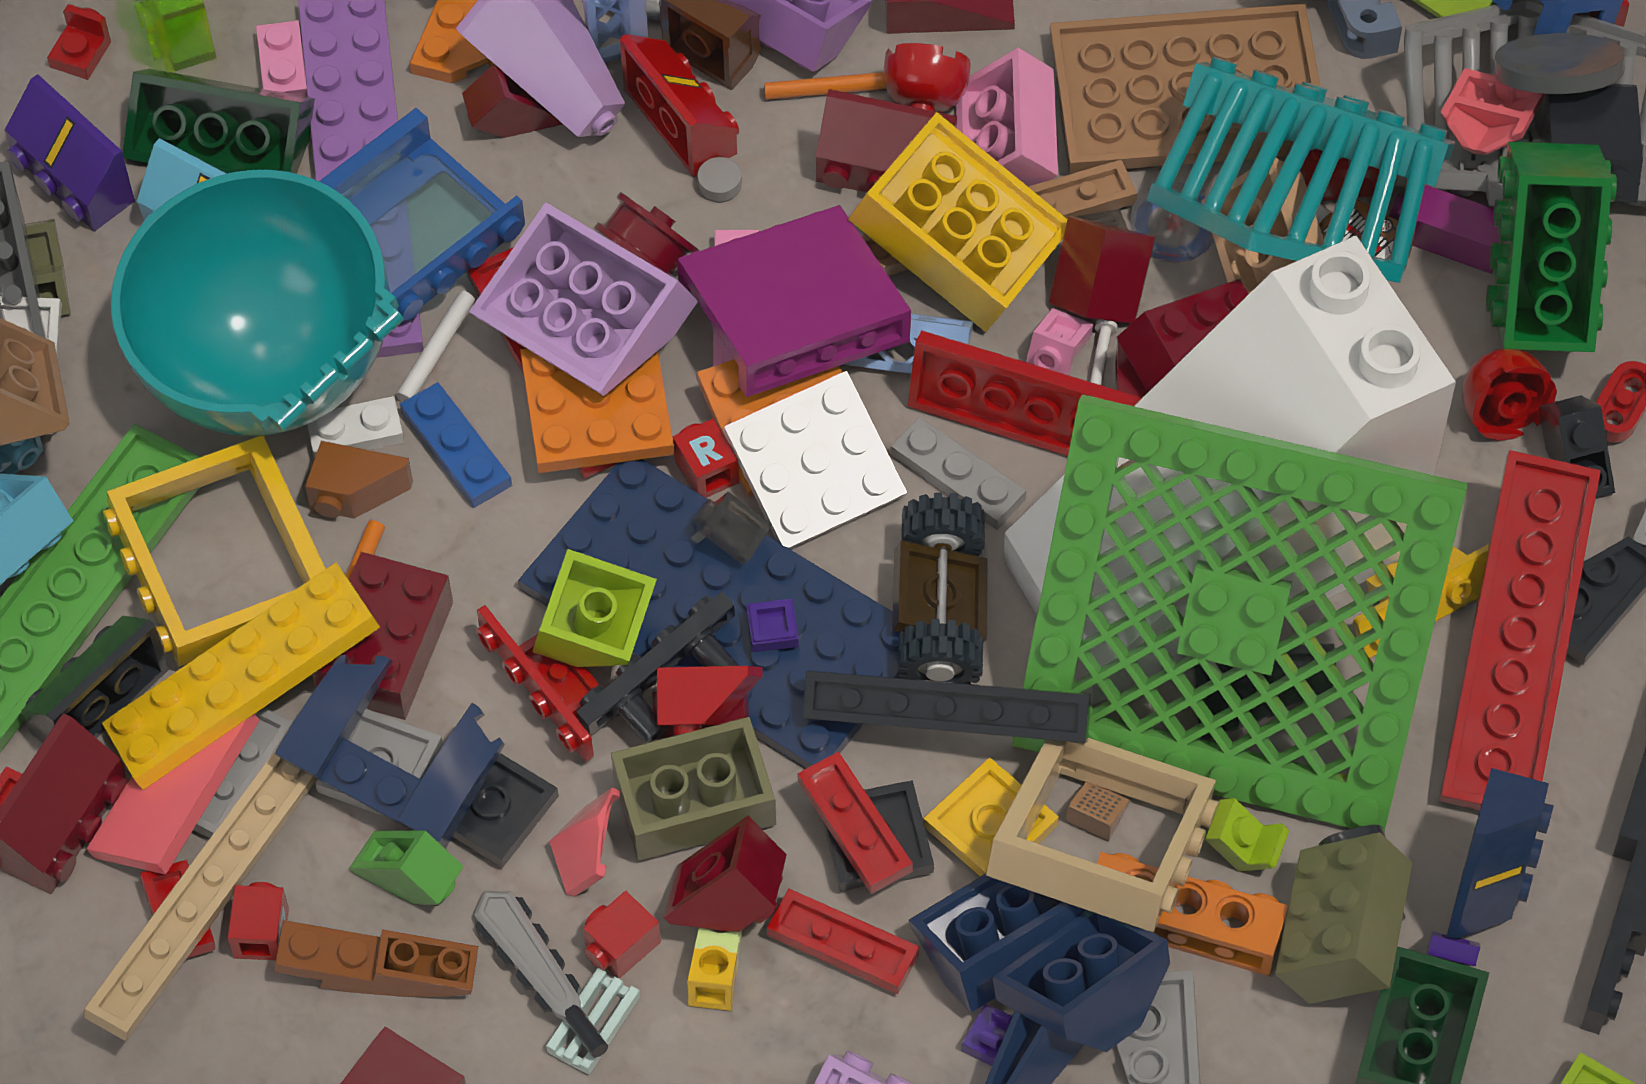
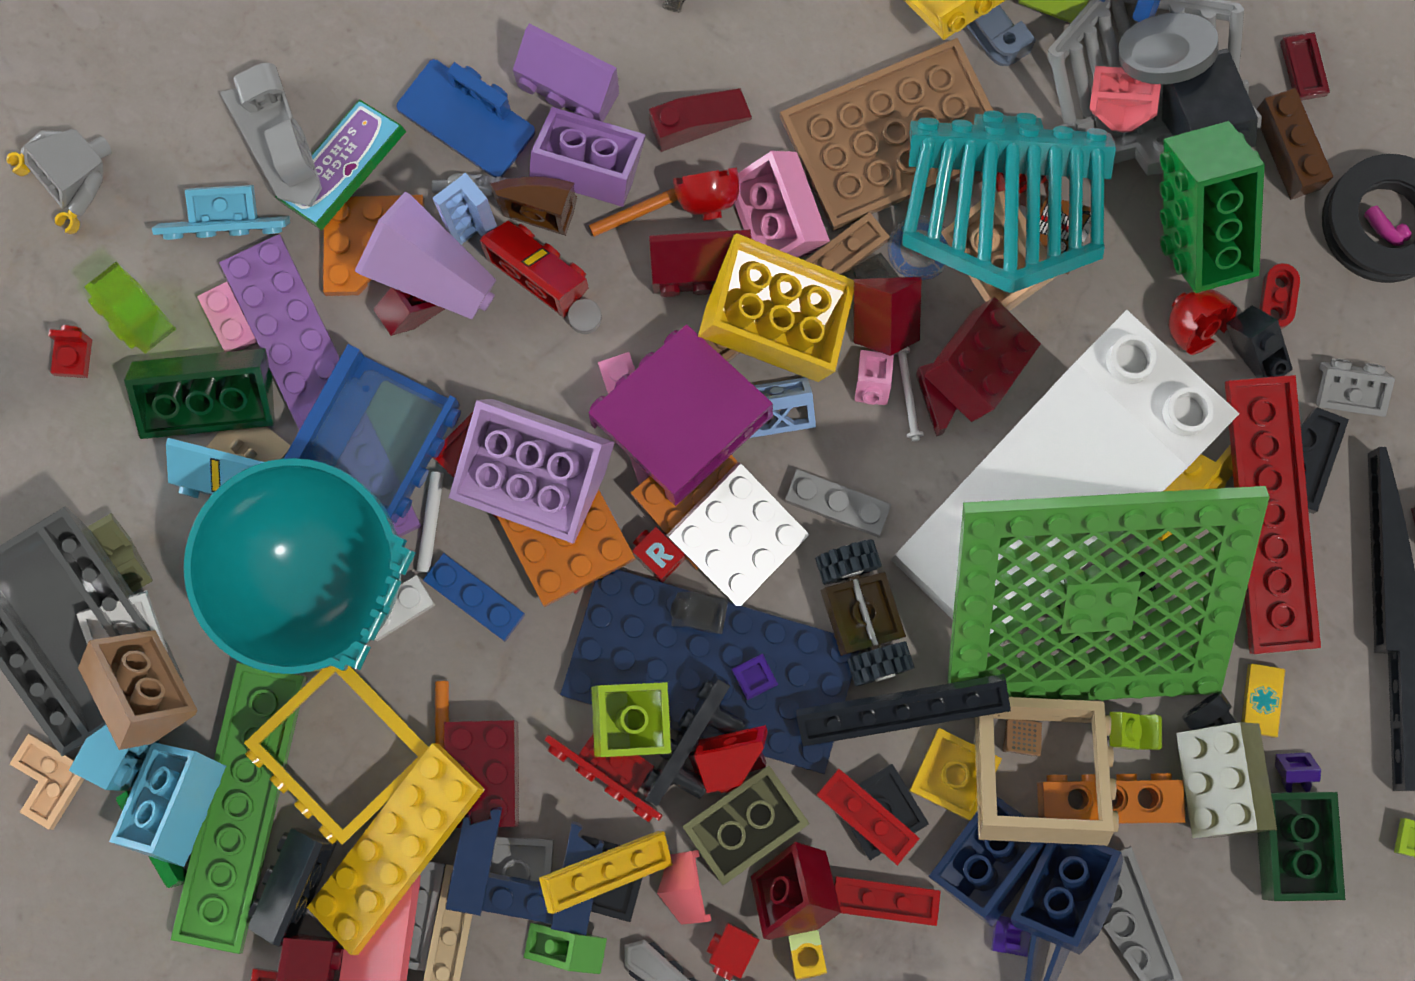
camera: 20 degrees left, 20 degrees up
(68, 156) = (100, 460): dark purple slope -> none
(354, 480) = (412, 656): dark orange slope -> none
(493, 771) = (605, 871): none -> yellow tile
(646, 234) = (555, 395): dark red wheel -> none
(1000, 392) = (886, 440): red plate -> none
(1438, 861) = (1263, 698): none -> yellow tile
(1453, 227) = (1128, 193): magenta brick -> none
(1500, 852) = (1315, 699): dark blue slope -> none

